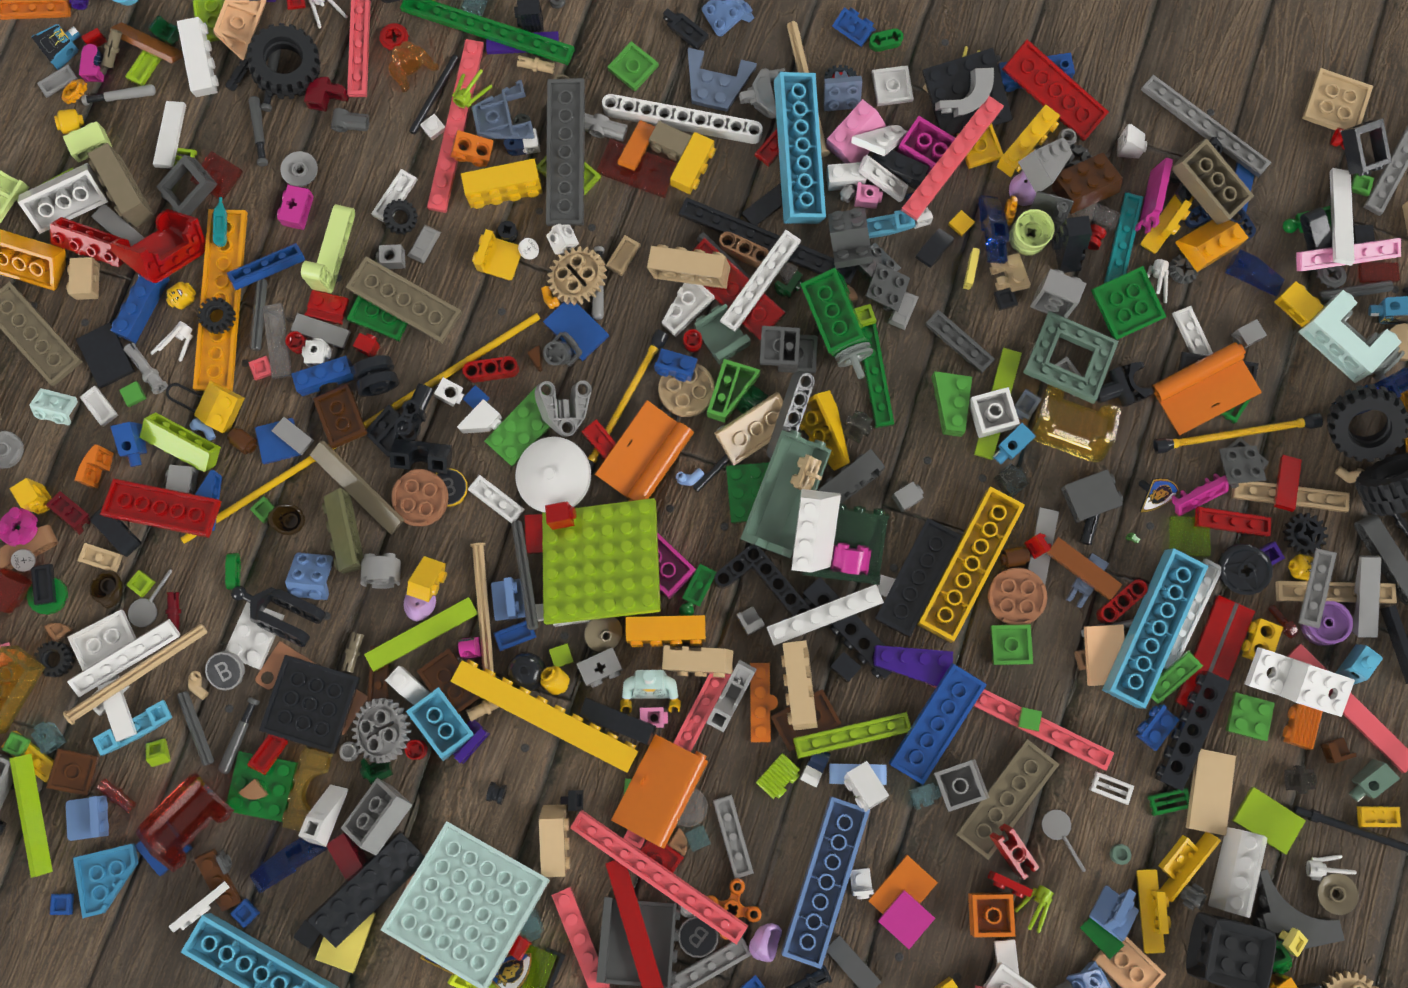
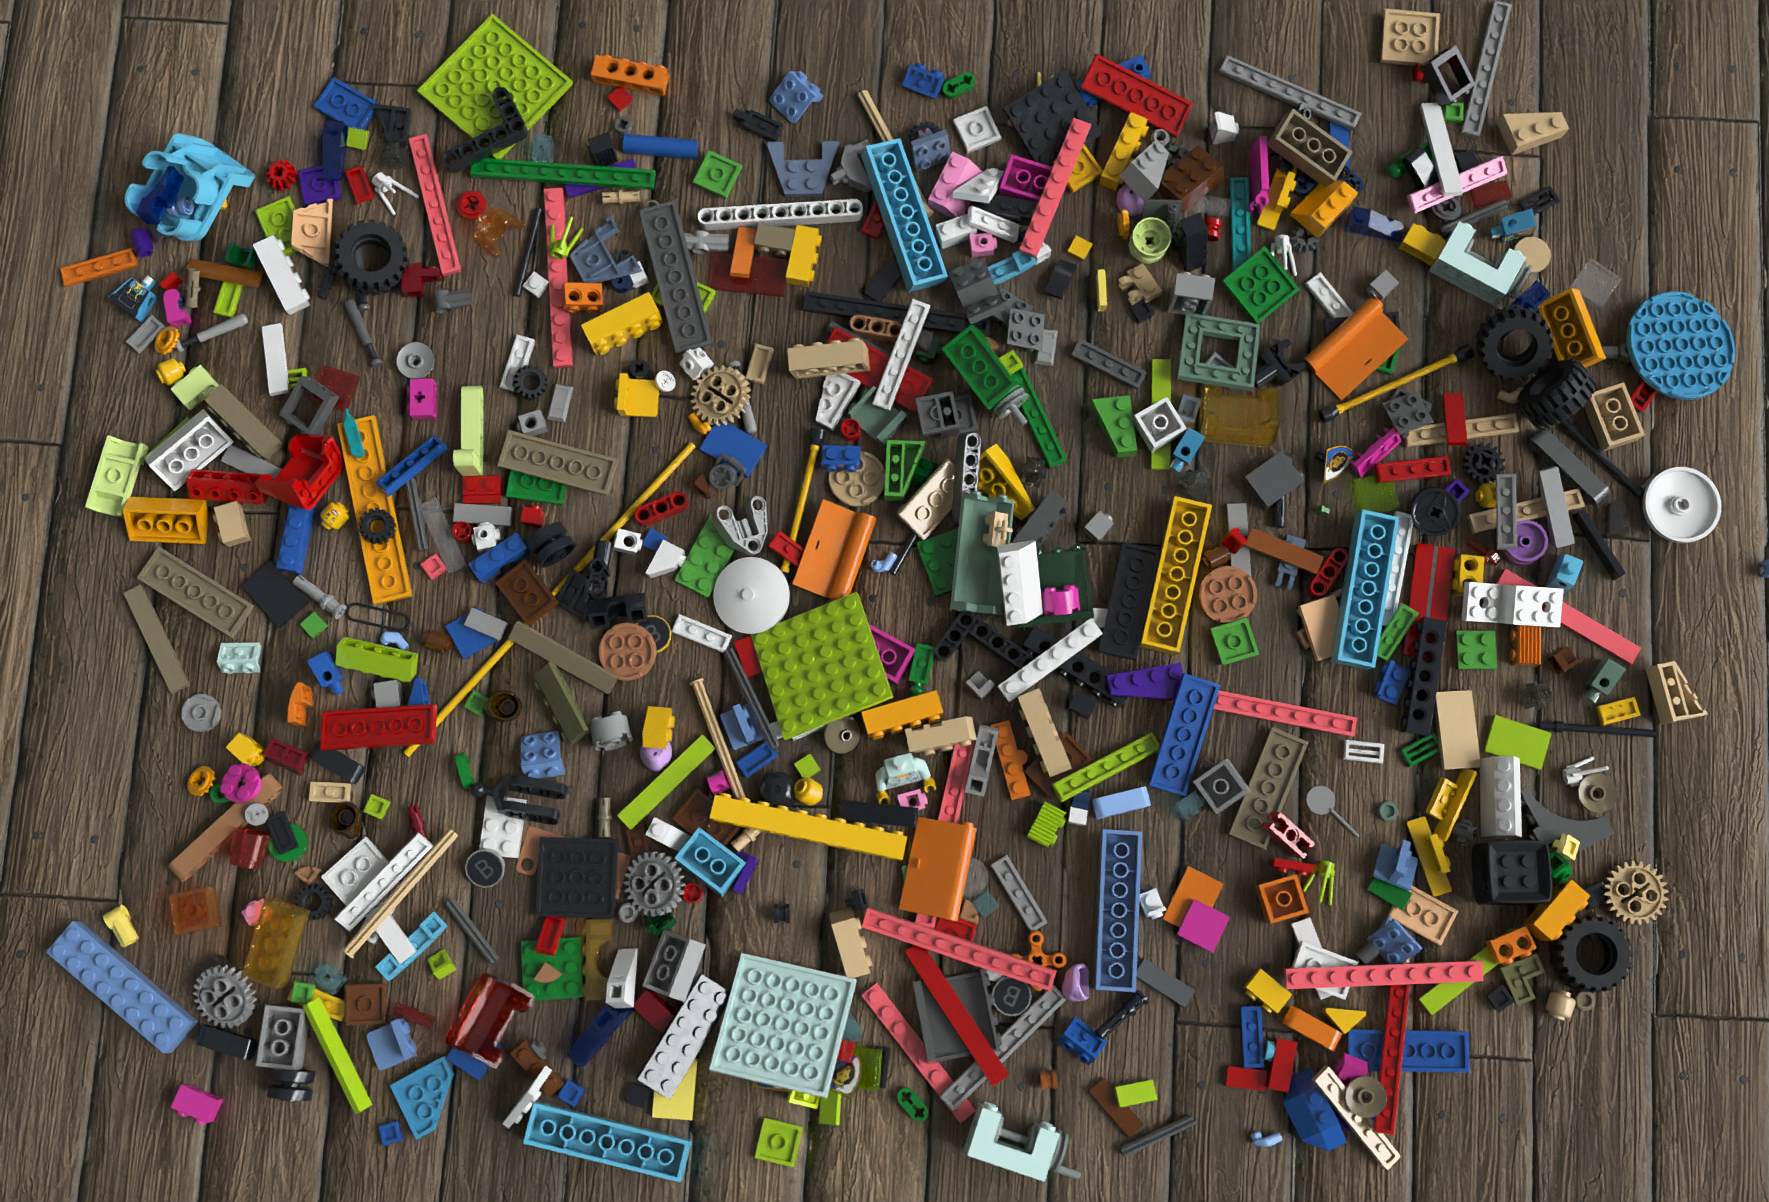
camera: 15 degrees left, 0 degrees up
(99, 406) = (283, 645): white tile -> none
(144, 611) = (388, 833): light grey piece -> none
(181, 332) = (343, 551): white plant -> none
(195, 685) = (459, 889): tan arm -> none
(219, 407) = (404, 615): yellow slope -> none
(236, 740) = (515, 930): dark grey piece -> none
(560, 515) = (770, 632): red brick -> none
(586, 26) = (660, 146): none -> blue brick
(589, 666) = (851, 757): light grey brick -> none
(847, 193) = (962, 247): light grey plate -> none
(865, 786) = (1132, 811): white brick -> none
(980, 89) = (1064, 114): light grey arch -> none
(995, 227) = (1114, 244): clear blue slope -> none
(1029, 719) = (1269, 707): bright green tile -> none

